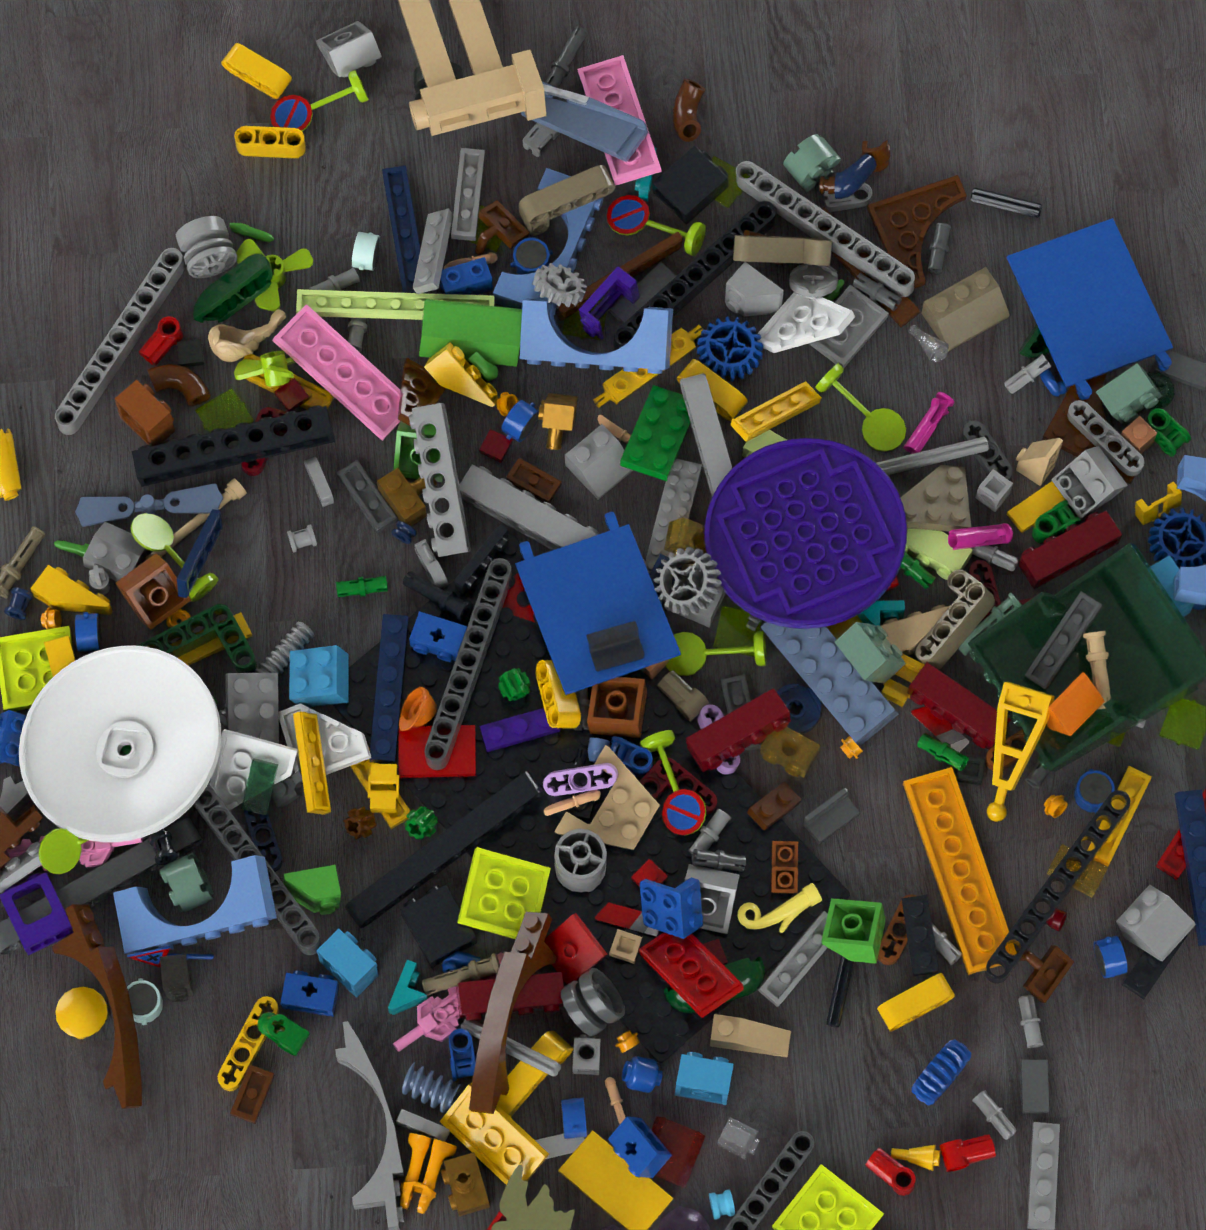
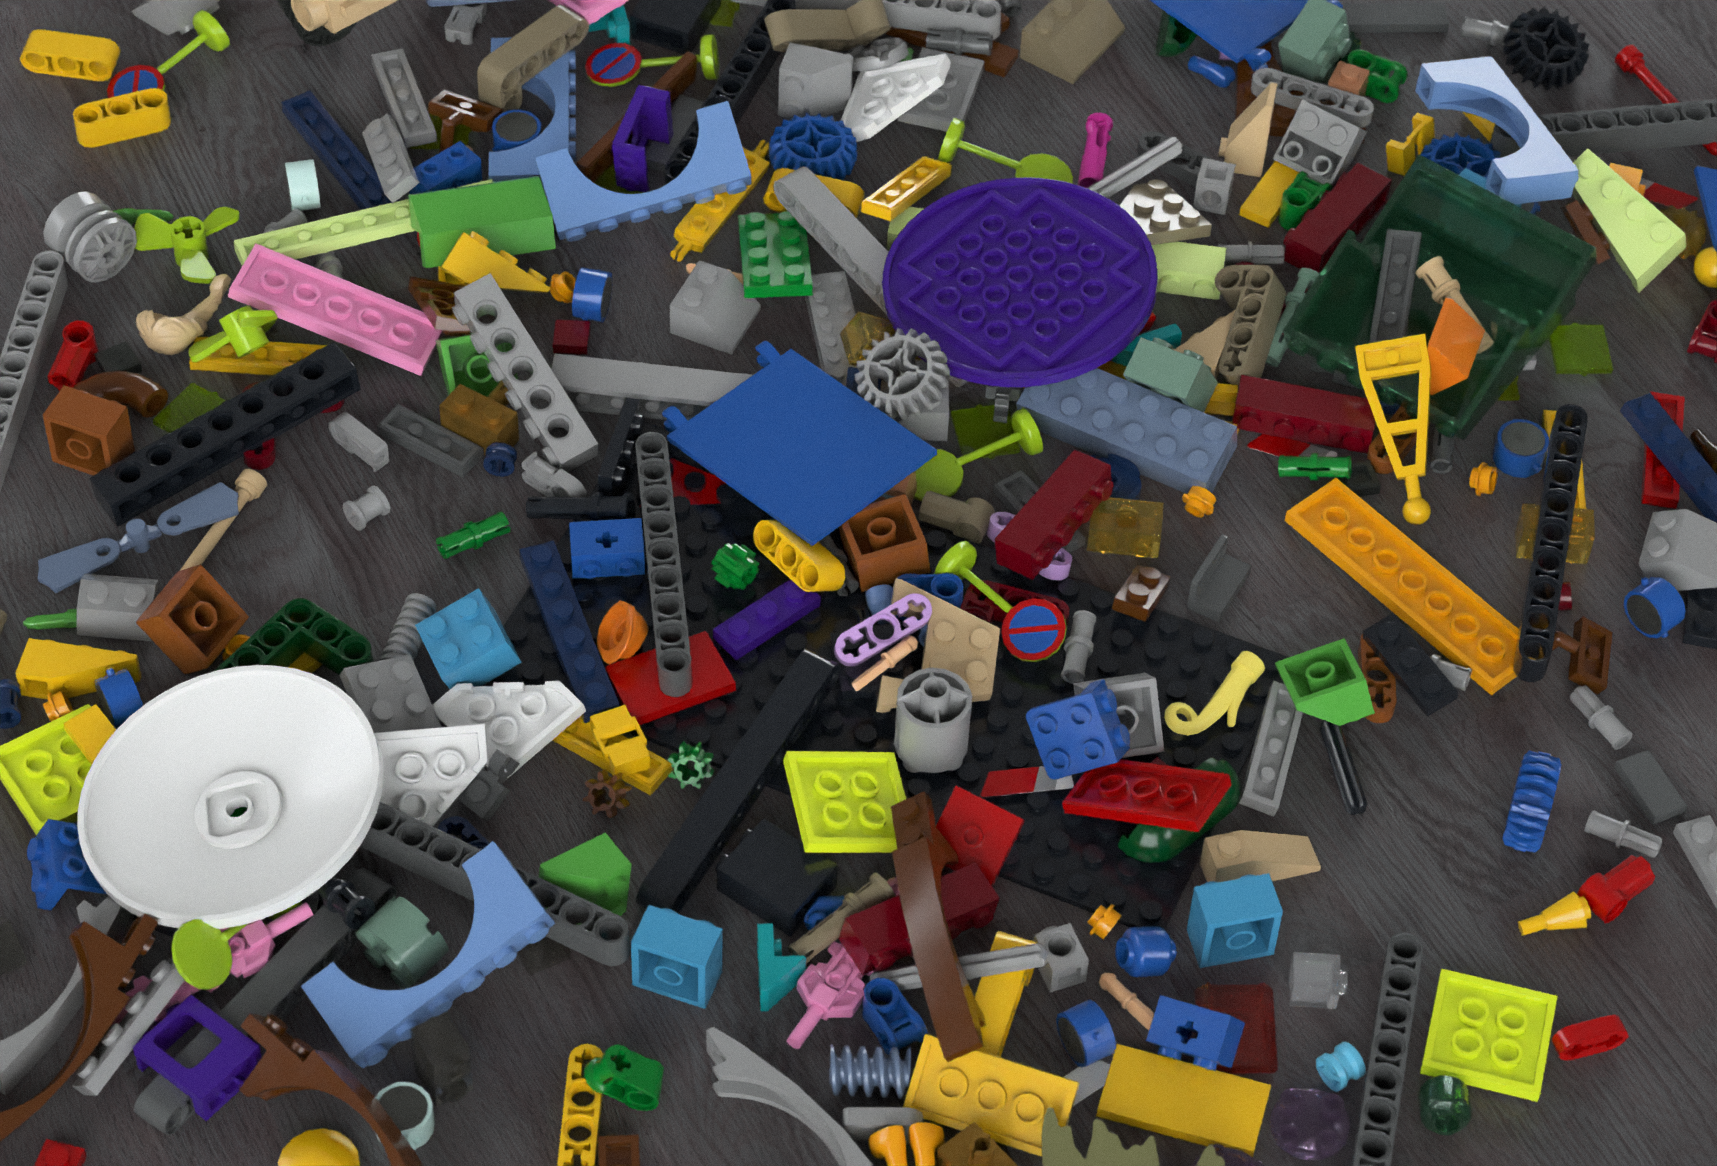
camera: 25 degrees left, 20 degrees down
(99, 580) = (108, 629): light grey axle -> none
(153, 956) = (398, 1049): blue piece -> none
(157, 536) = (168, 561): lime piece -> none
(199, 553) = (237, 556): dark blue tile -> none
(234, 290) = (150, 267): dark green brick -> none
(259, 786) = (450, 790): clear green tile -> none
(291, 395) = (276, 357): dark red tile -> none
(312, 763) = (510, 738): yellow tile -> none
(321, 1002) = (641, 1019): blue brick -> none
(486, 368) = (525, 259): bright green arm -> none
(534, 481) = (641, 350): reddish brown plate -> none
(557, 415) = (637, 269): pearl gold brick -> none
(559, 285) = (572, 132): light grey gear -> none
(592, 1002) = (1035, 883): dark grey wheel -> none
(615, 646) = (848, 465): clear smoke panel -> none
(625, 946) = (1042, 807): tan plate -> none
(650, 872) = (1017, 725): red plate -> none
(718, 860) = (1107, 666): dark grey pin -> none
(784, 867) = (1192, 650): dark orange slope -> none
(889, 1170) = (1537, 946): red piece -> none
(916, 571) = (1174, 298): green pin -> none
(916, 1002) = (1447, 744): yellow beam -> none
(933, 347) = (1055, 79): clear cone -> none
(980, 536) = (1227, 233): dark pink piece -> none
(1027, 374) = (1182, 69): light grey axle -> none

